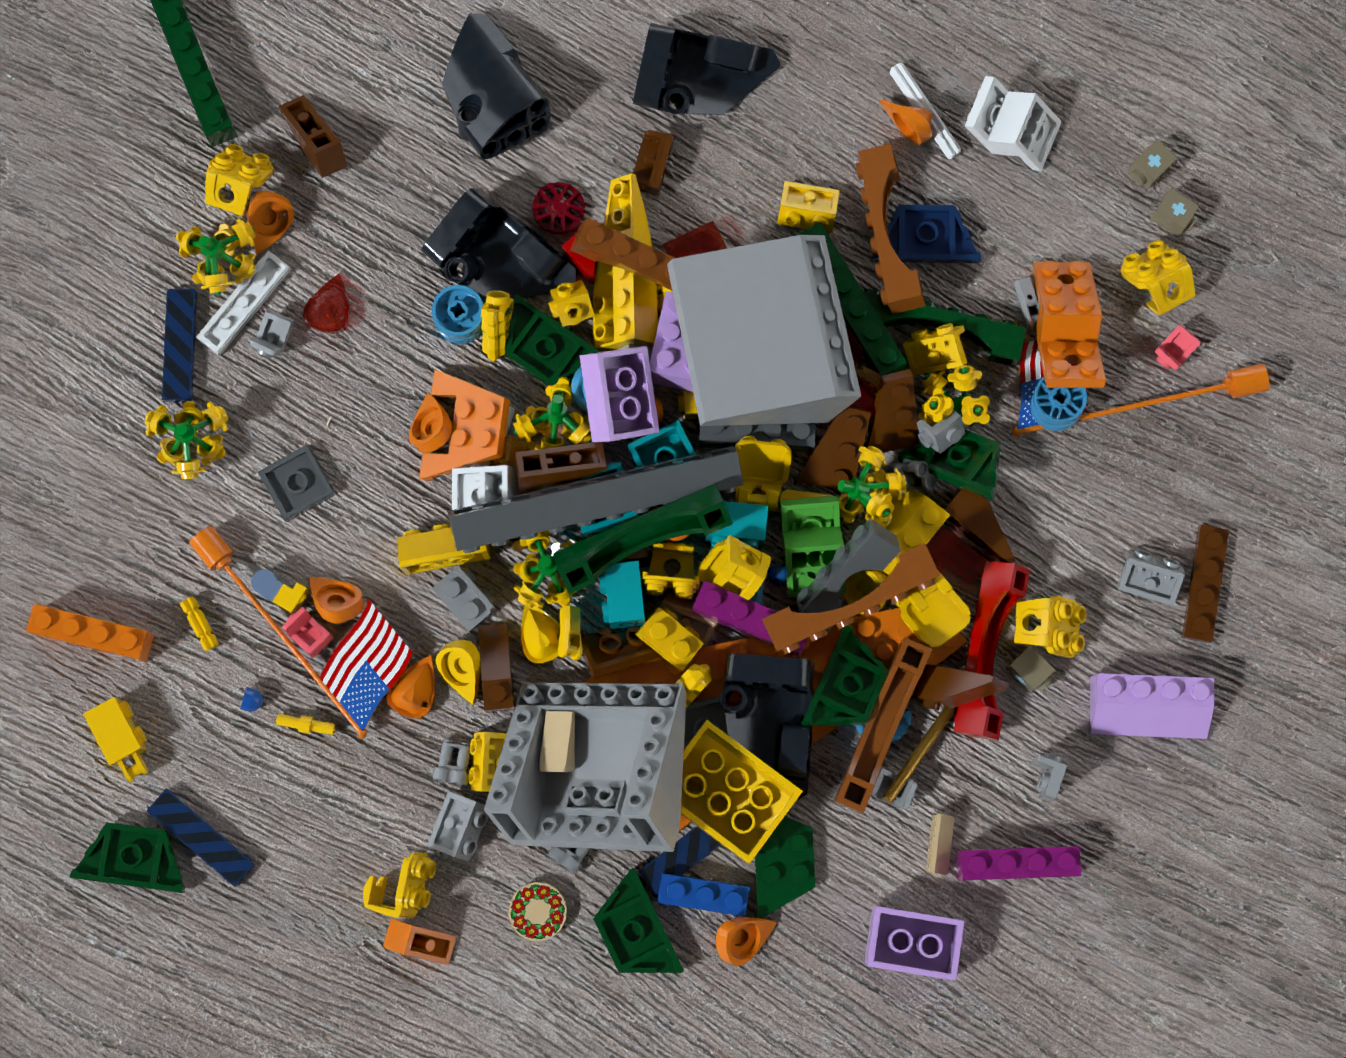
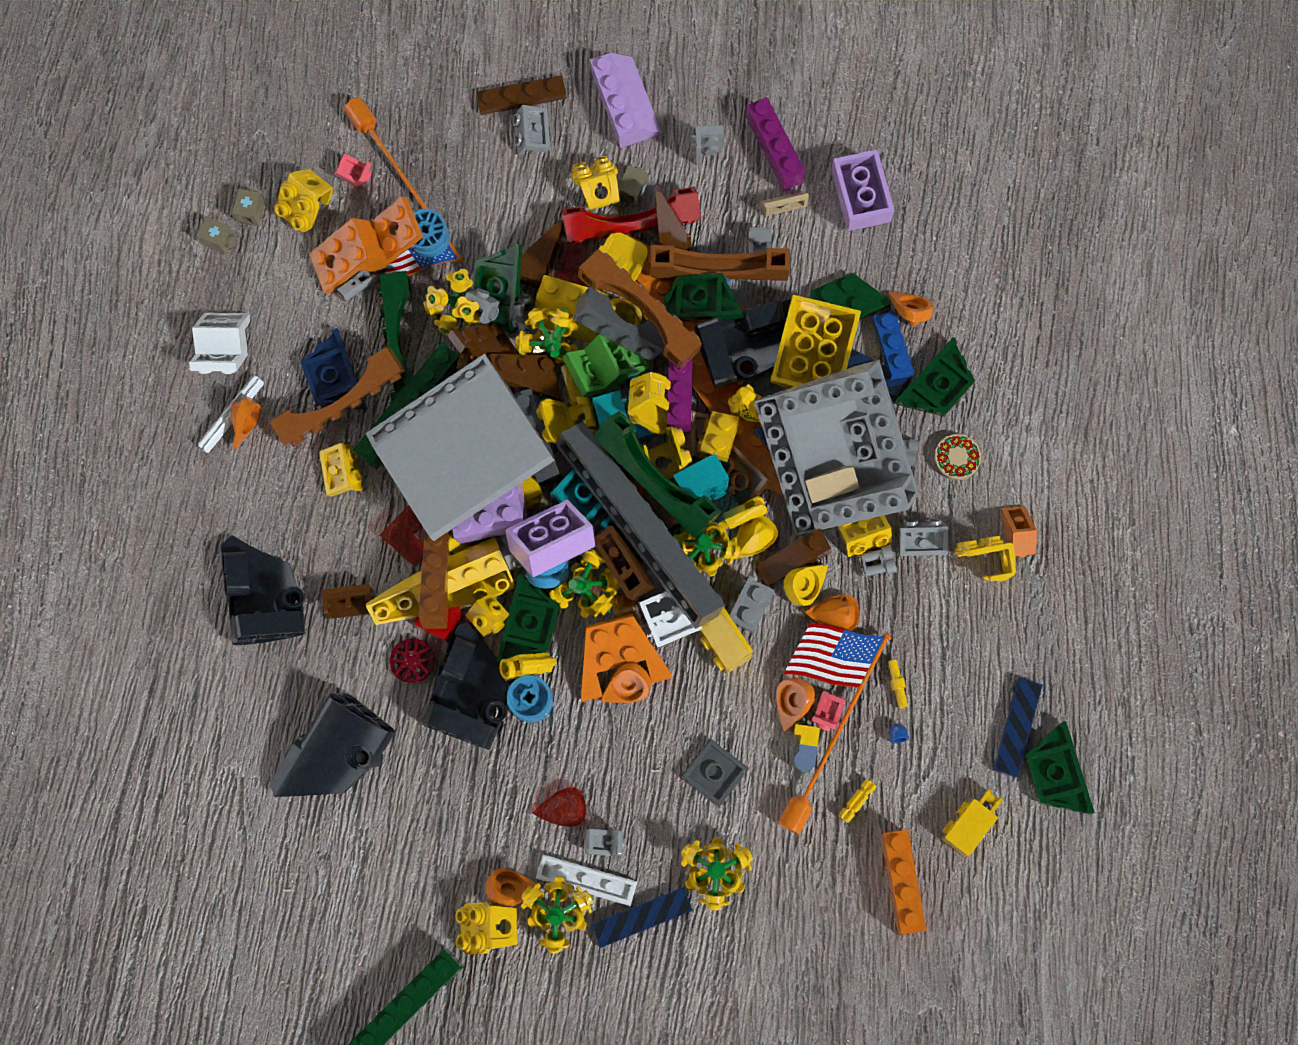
camera: 105 degrees left, 5 degrees down
(314, 136) = (425, 881): reddish brown slope -> none
(918, 754) = (729, 237): pearl gold bar -> none
(935, 349) = (419, 332): yellow bracket -> none

